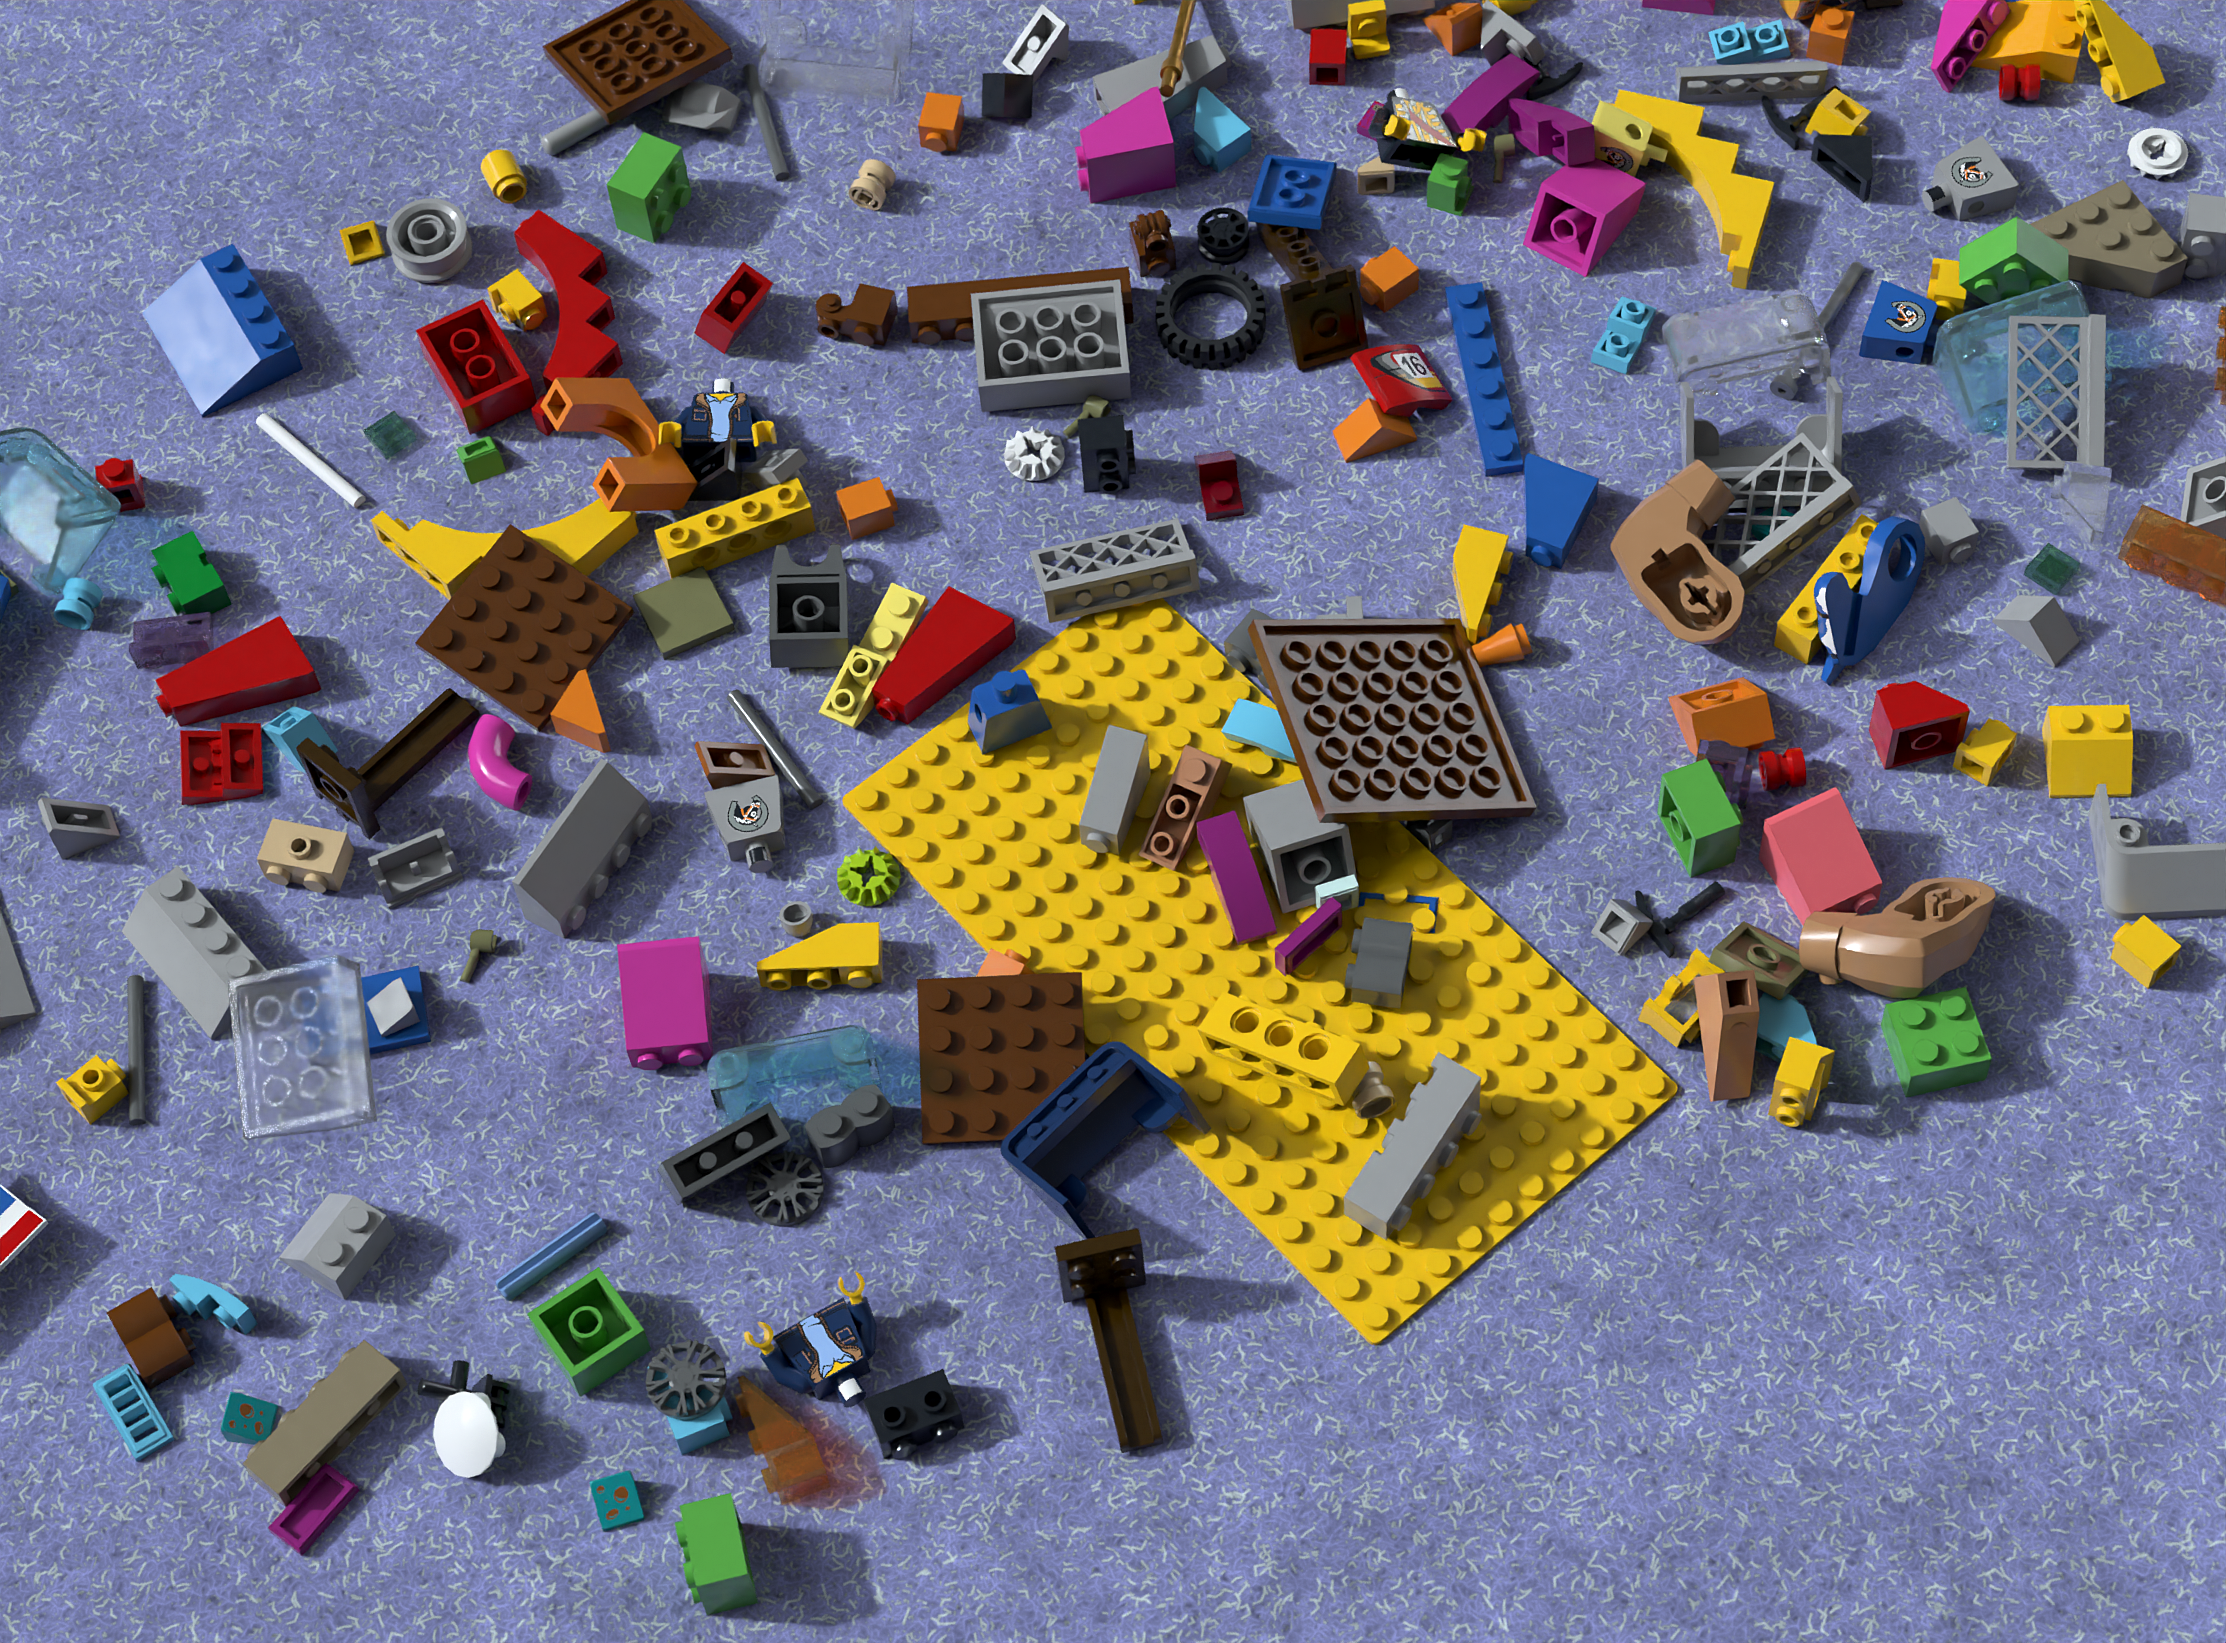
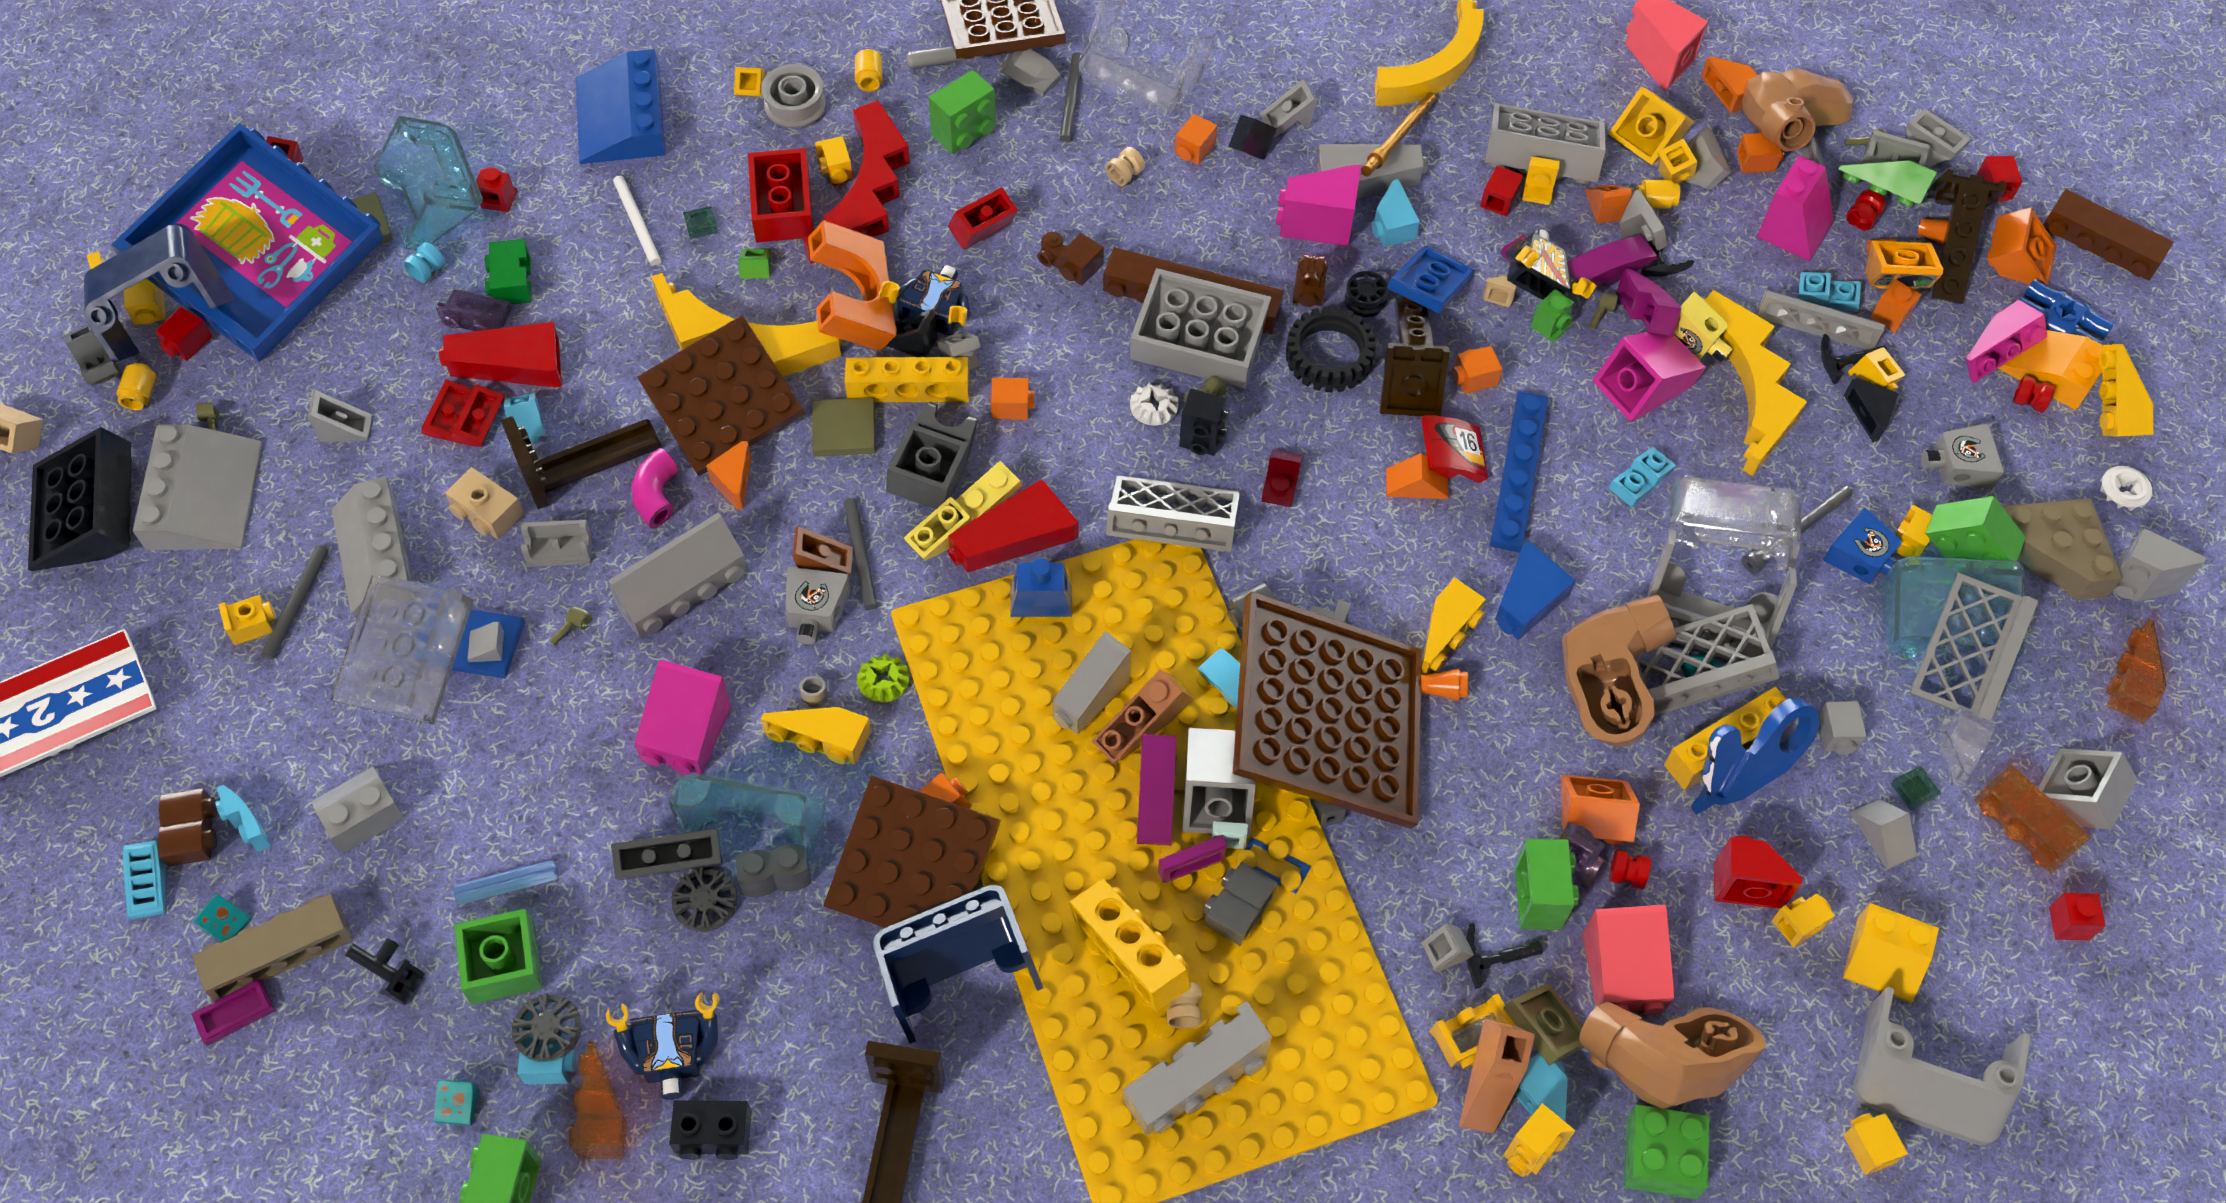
camera: 15 degrees right, 0 degrees up
(467, 1434) = (368, 1001): white dish -> none

